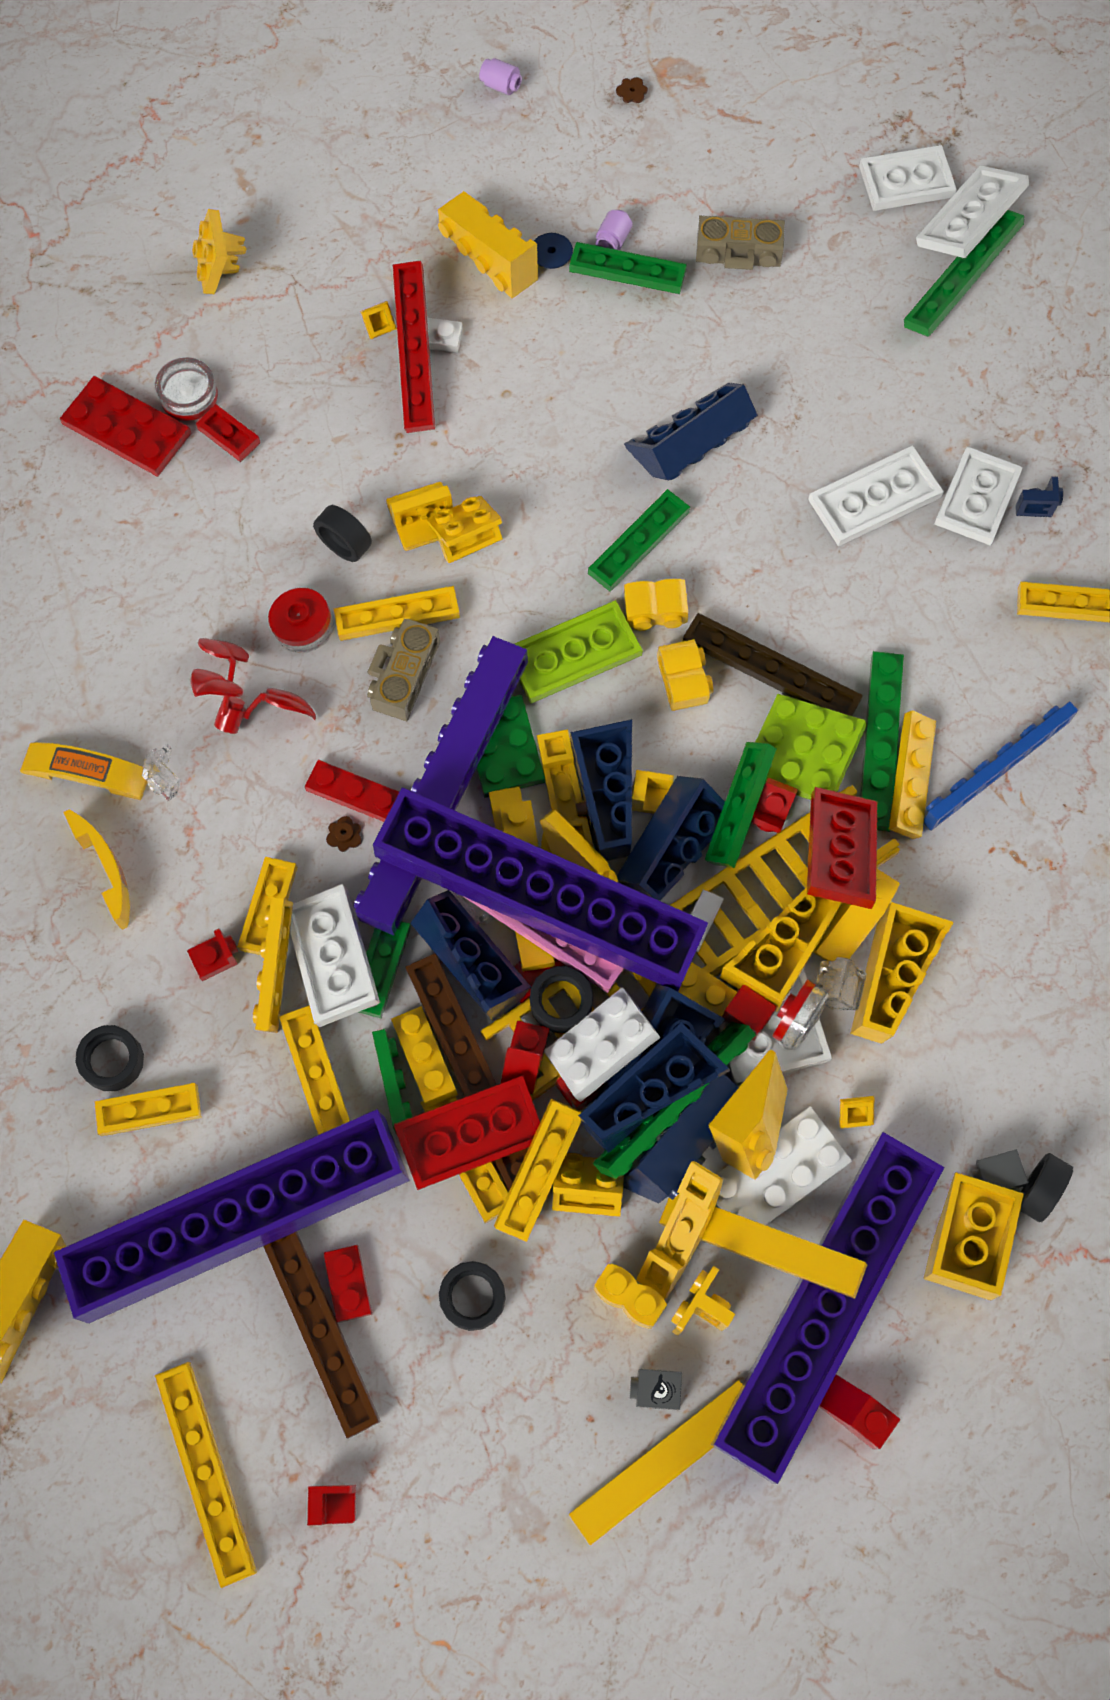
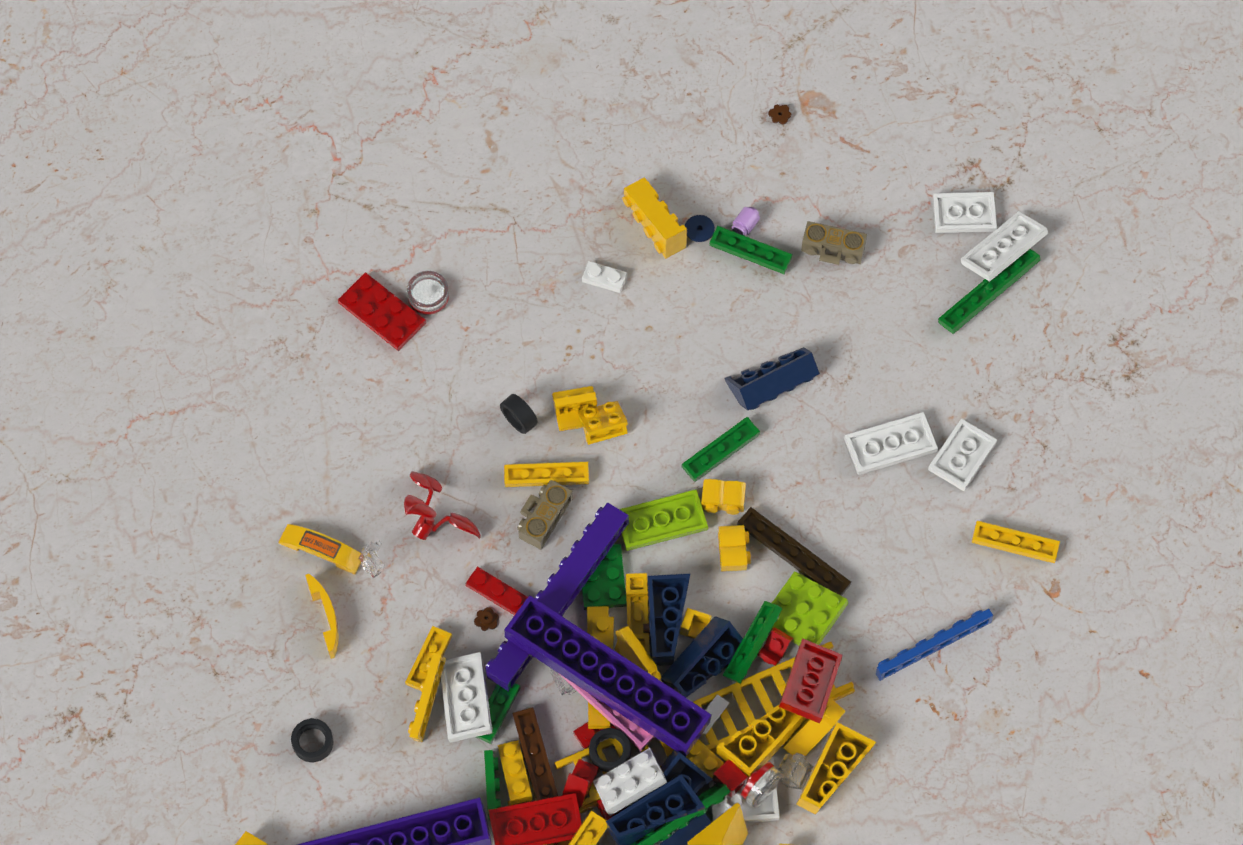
camera: 10 degrees right, 5 degrees down
(147, 1109) = (332, 776): yellow plate -> none
(214, 955) = (388, 685): red bracket -> none
(215, 251) = (462, 196): yellow plate -> none
(228, 433) = (451, 328): red plate -> none
(301, 620) = (481, 469): red piece -> none
(314, 1070) = (442, 767): yellow plate -> none
(378, 320) = (568, 262): yellow slope -> none
(413, 347) = (589, 287): red plate -> none
(470, 955) = (556, 711): dark blue wedge -> none
(500, 76) = (686, 90): lavender brick -> none
(882, 733) = (859, 612): green plate -> none
(912, 775) = (874, 641): yellow plate -> none
(1040, 502) = (1001, 466): dark blue bracket -> none

